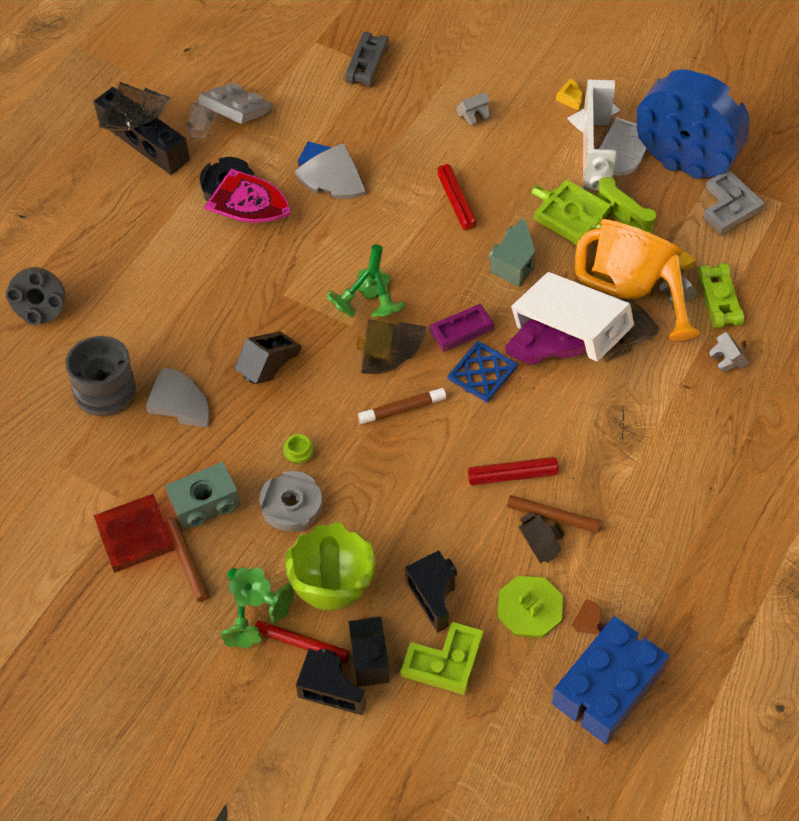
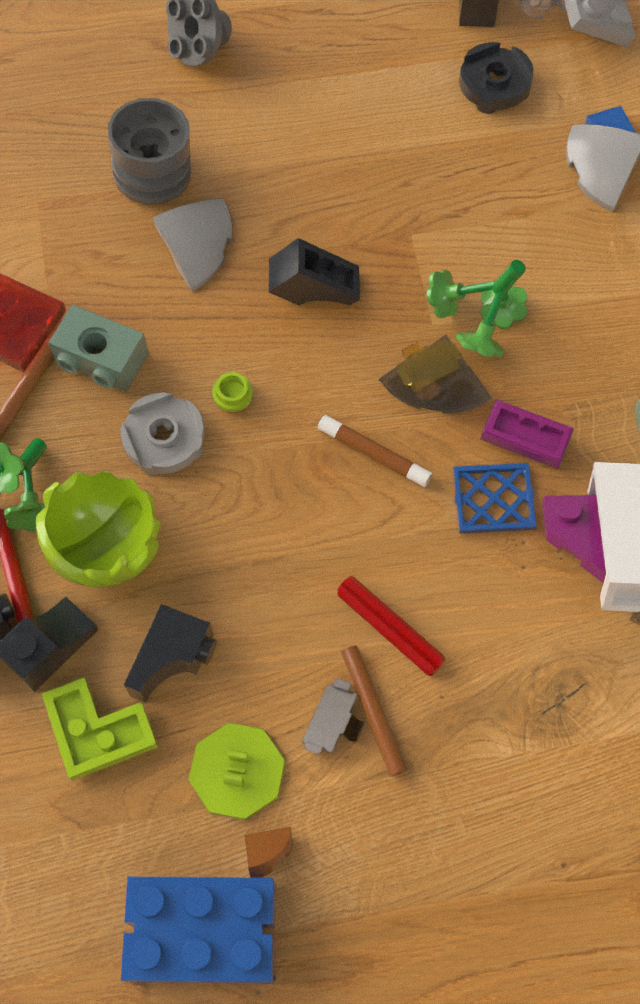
camera: 50 degrees right, 10 degrees up
(248, 199) = (487, 110): shield -> none

